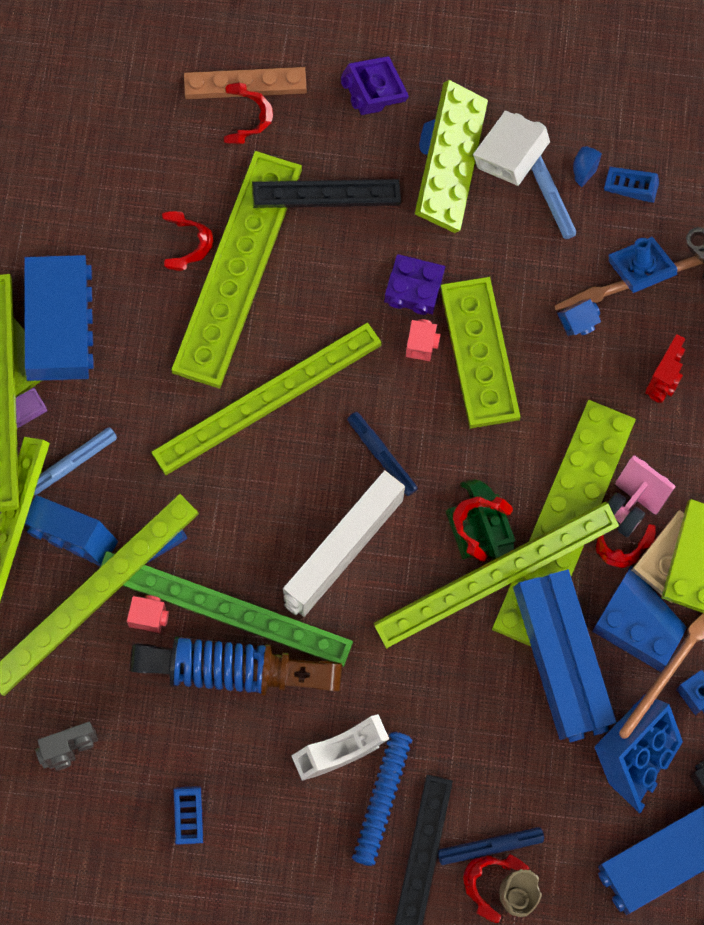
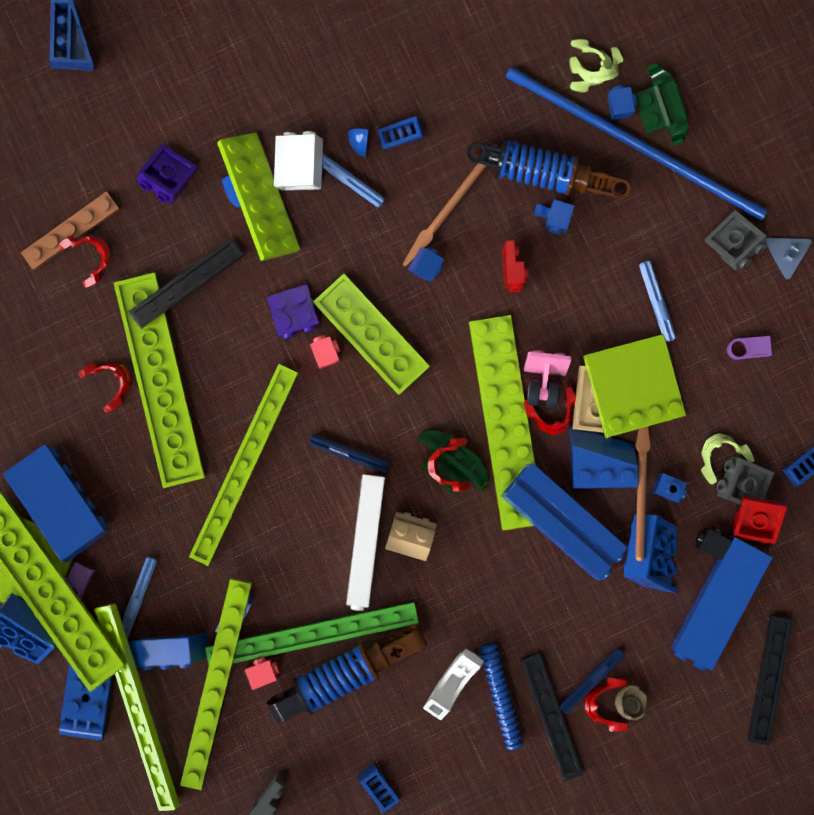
camera: 35 degrees left, 15 degrees up
(392, 572) = (411, 536): none -> tan brick
(496, 574) = (484, 494): lime plate -> none
(640, 259) = (442, 190): blue plate -> none

